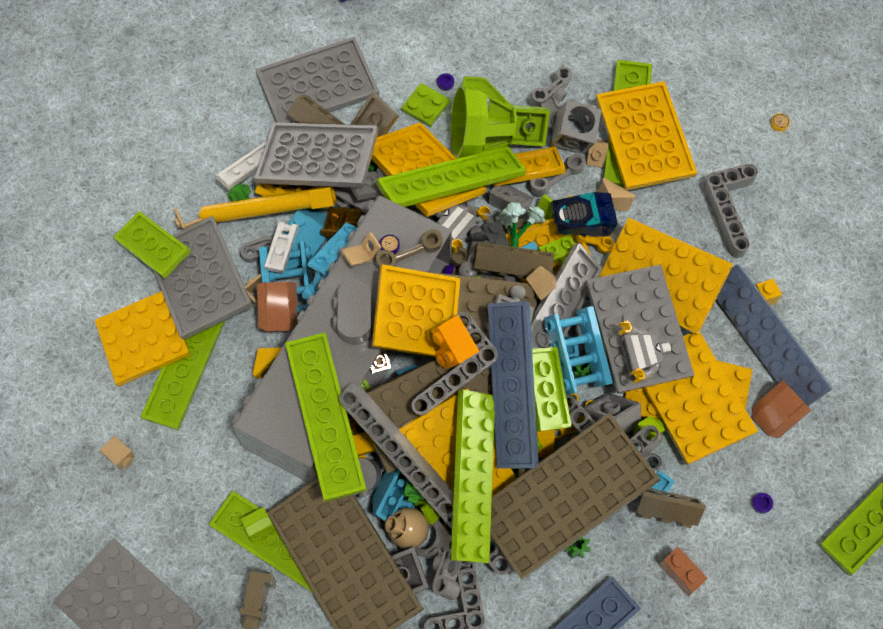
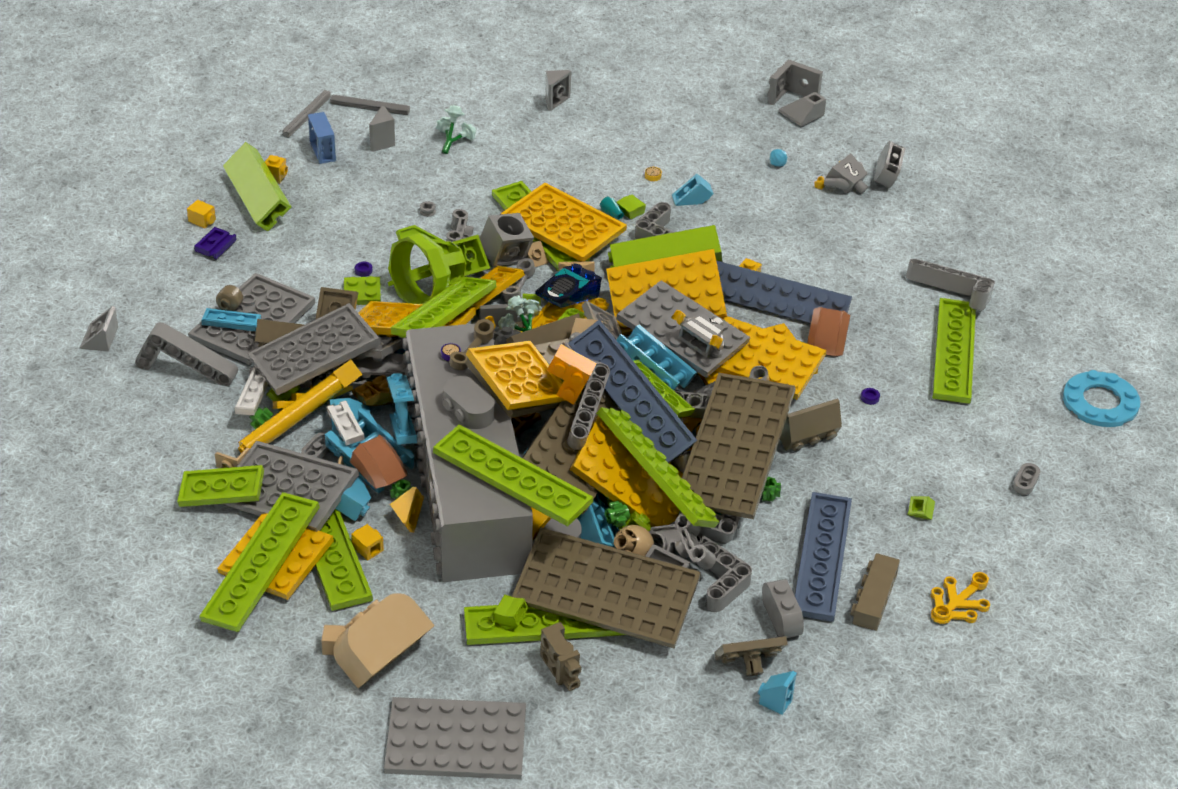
camera: 40 degrees left, 25 degrees down
(116, 341) = (259, 562): none -> lime plate
(135, 483) = (379, 636): none -> tan brick
(197, 28) = (101, 331): none -> light grey slope
(214, 72) = (186, 351): none -> light grey beam
(217, 371) = (367, 542): none -> yellow brick
(238, 325) = (355, 500): none -> medium azure slope
(280, 335) = (400, 488): none -> bright green gear
(295, 76) = (230, 319): none -> medium azure tile
(306, 55) = (229, 298): none -> dark tan head
(361, 253) = (433, 367): tan bracket -> none
(396, 452) = (587, 479): light grey beam -> none
(549, 42) = (427, 209): none -> light grey bush
(683, 571) = (858, 460): nougat brick -> none
(704, 228) = (665, 246): none -> lime brick
(707, 140) = (611, 208): none -> teal cone
(727, 149) = (631, 206): none -> lime piece
(798, 167) = (693, 192): none -> medium azure slope

